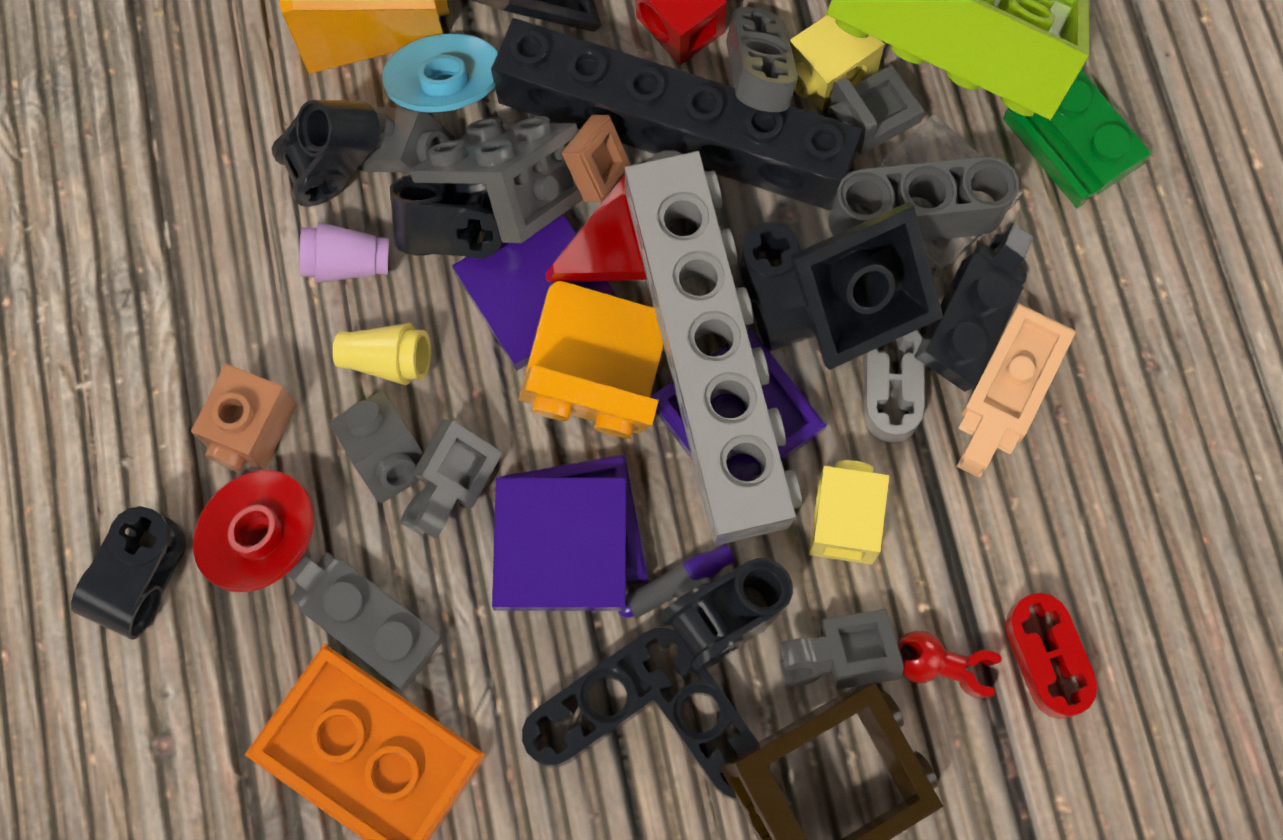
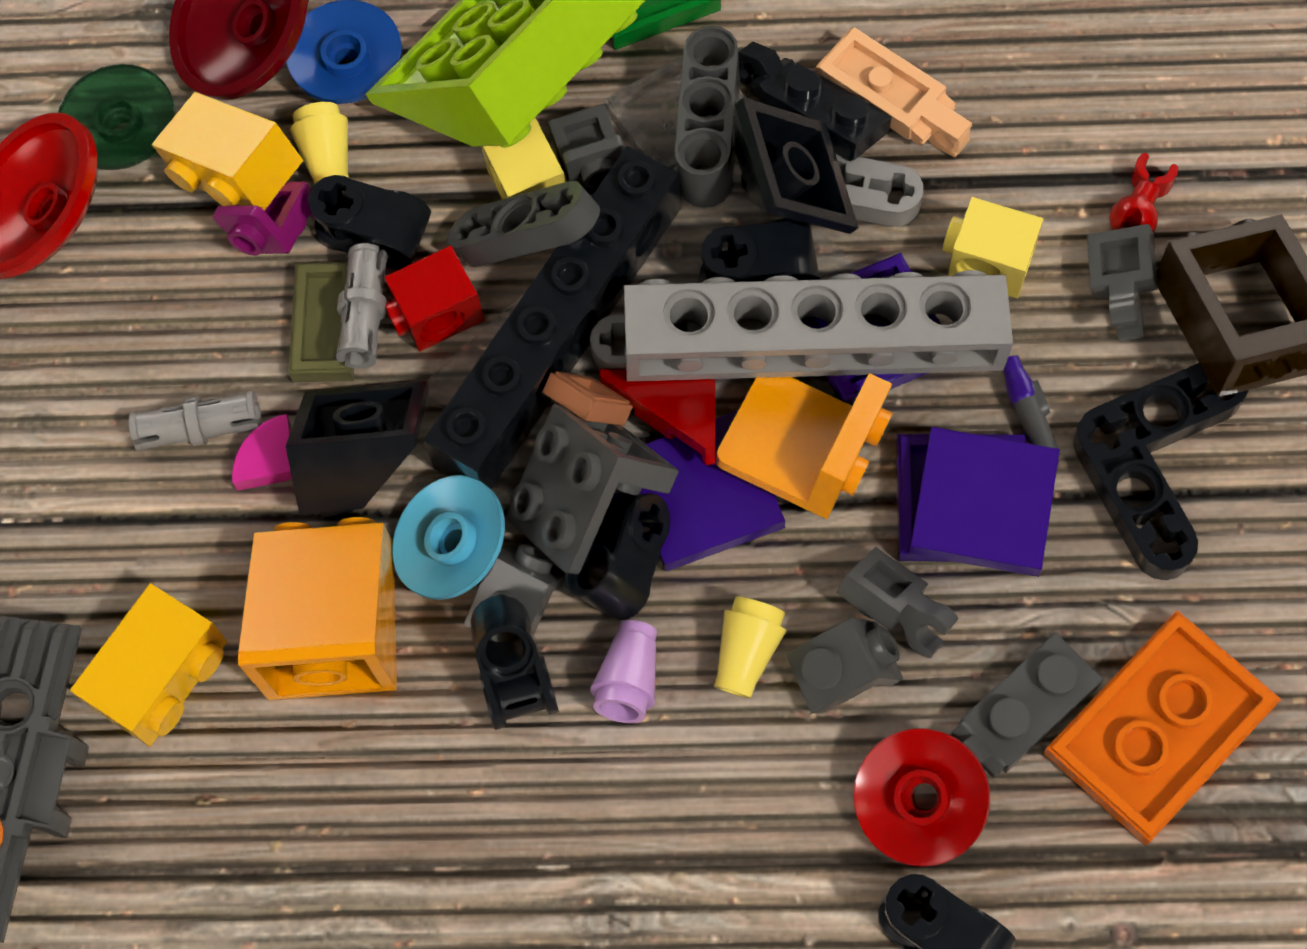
camera: 75 degrees left, 5 degrees down
(243, 419) = (797, 794): nougat brick -> none
(719, 616) = (1077, 358): black piece -> none
(1065, 650) = (1145, 116): red beam -> none

